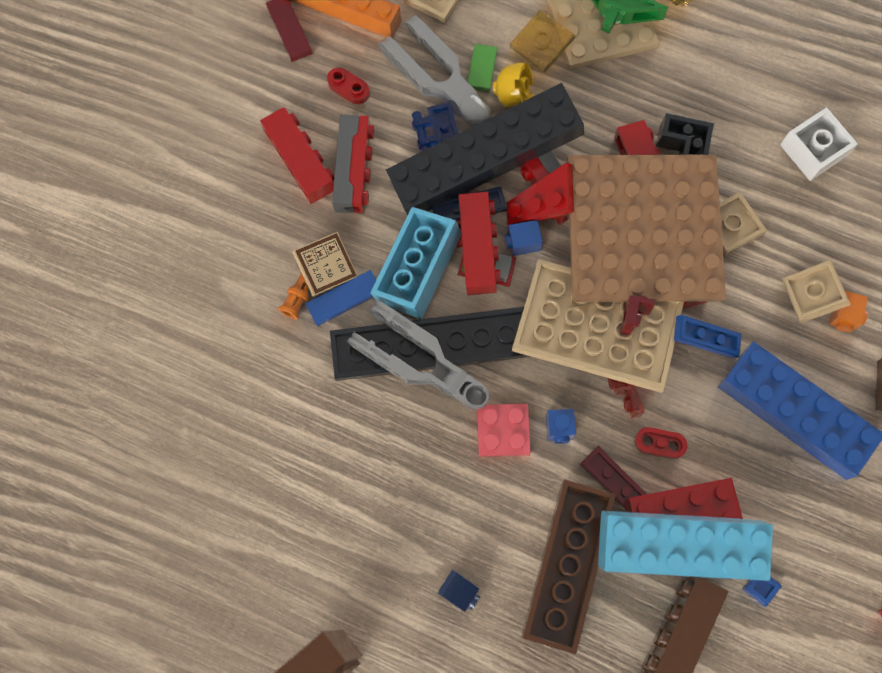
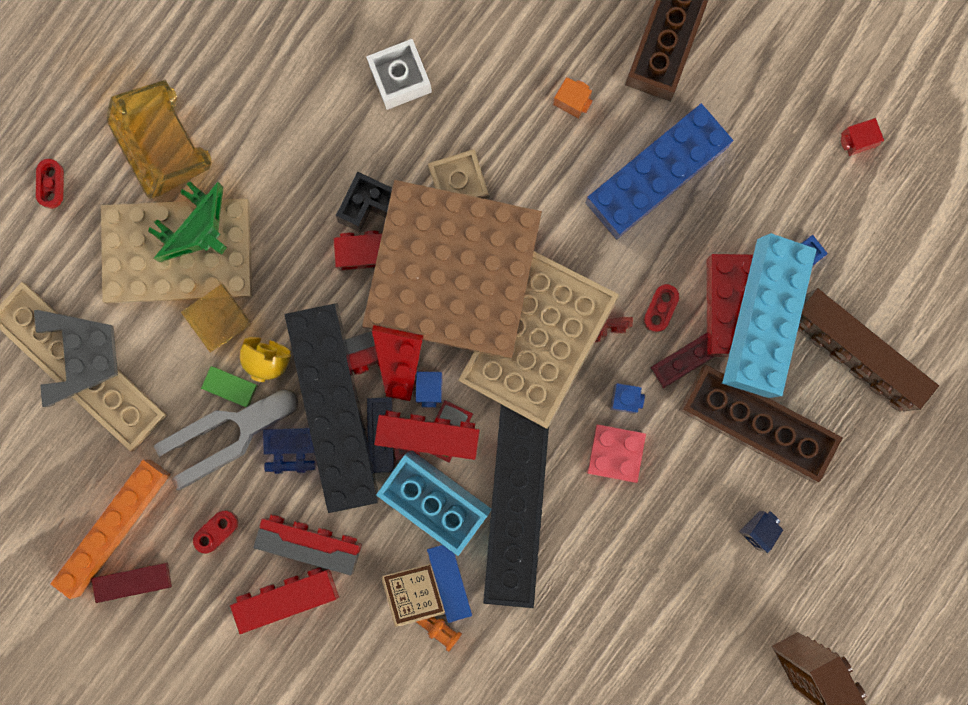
camera: 75 degrees left, 10 degrees up
(445, 375) = (556, 500): light grey piece -> none
(633, 312) = (541, 306): dark red bracket -> none
(707, 336) = (571, 237): blue tile -> none
(815, 291) = (548, 122): tan tile -> none

